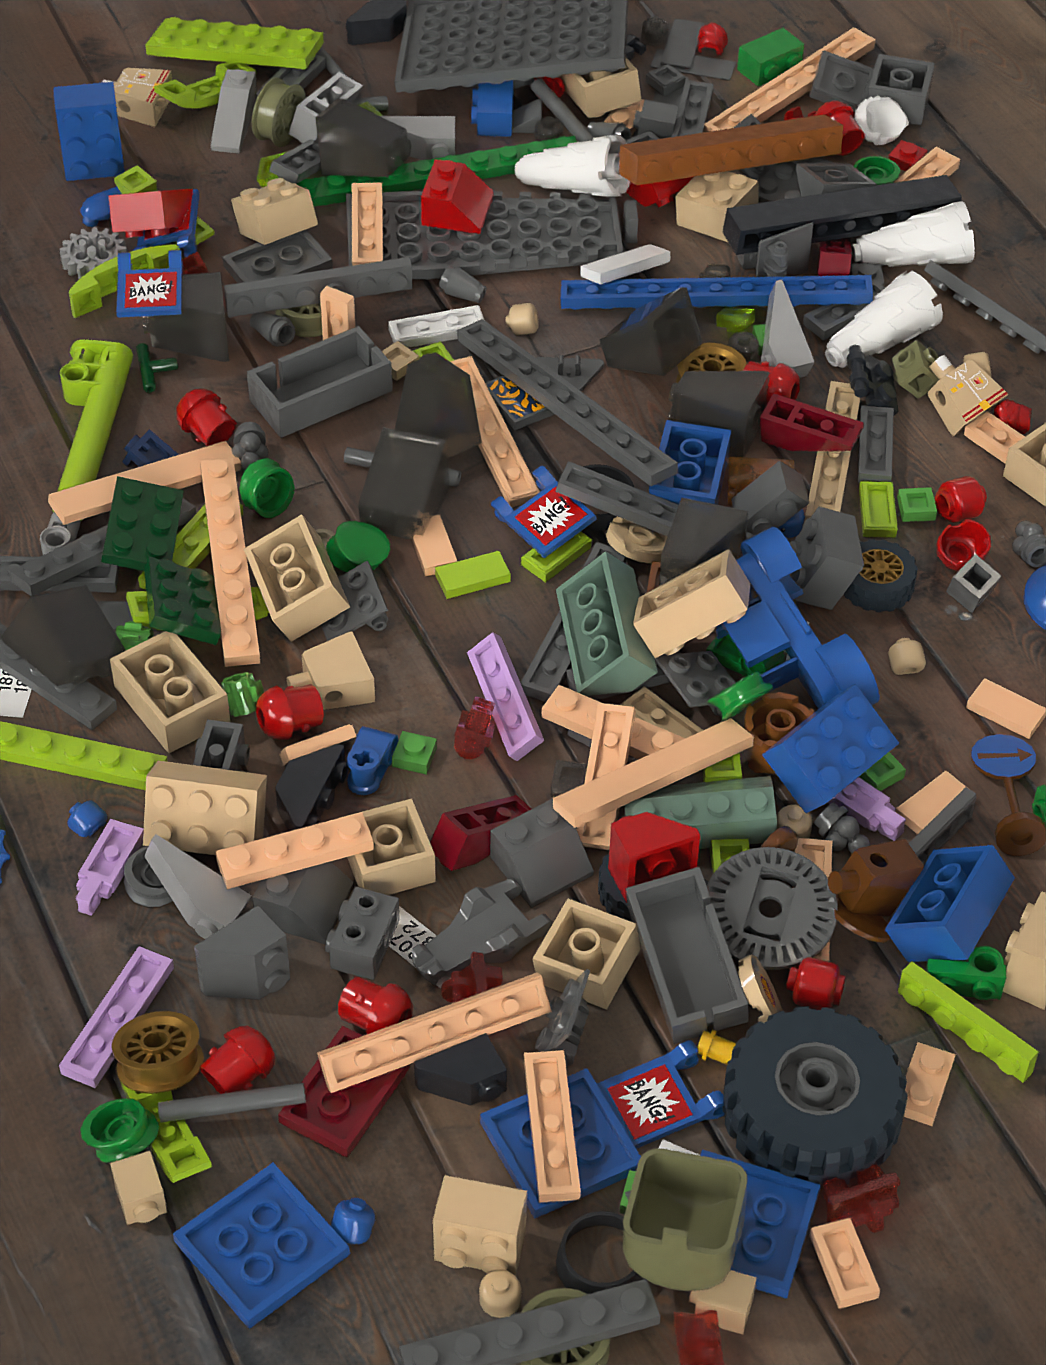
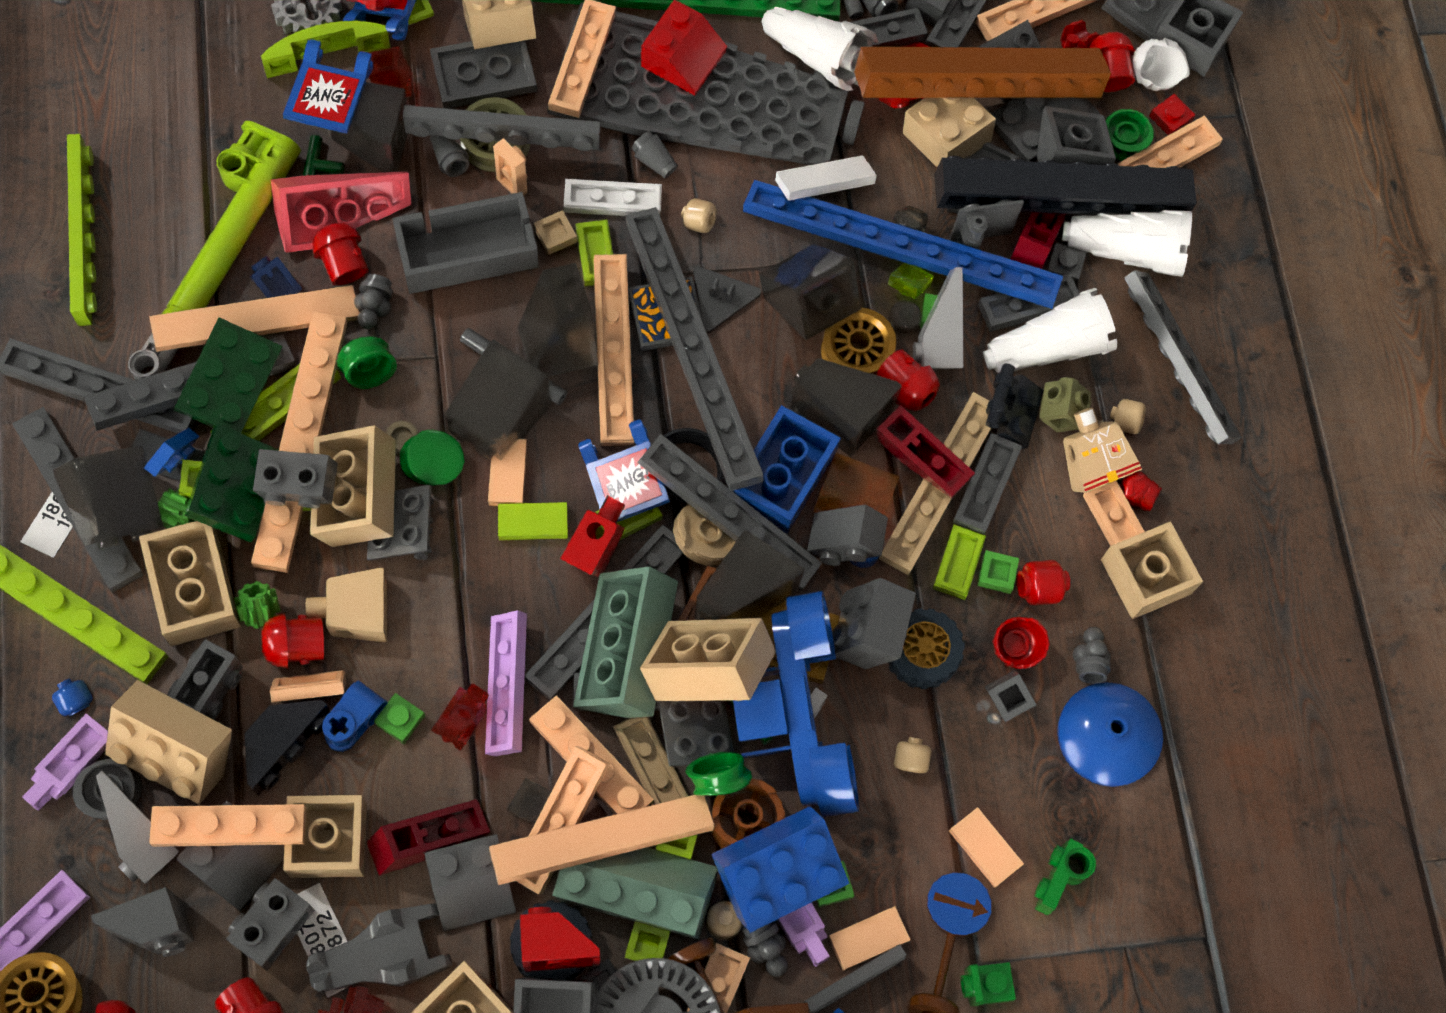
camera: 10 degrees right, 20 degrees up
(113, 592) = (172, 452): none -> blue plate
(155, 391) = (314, 201): none -> coral wedge
(244, 568) = (295, 477): none -> dark grey brick
(542, 561) = (585, 549): none -> red torso

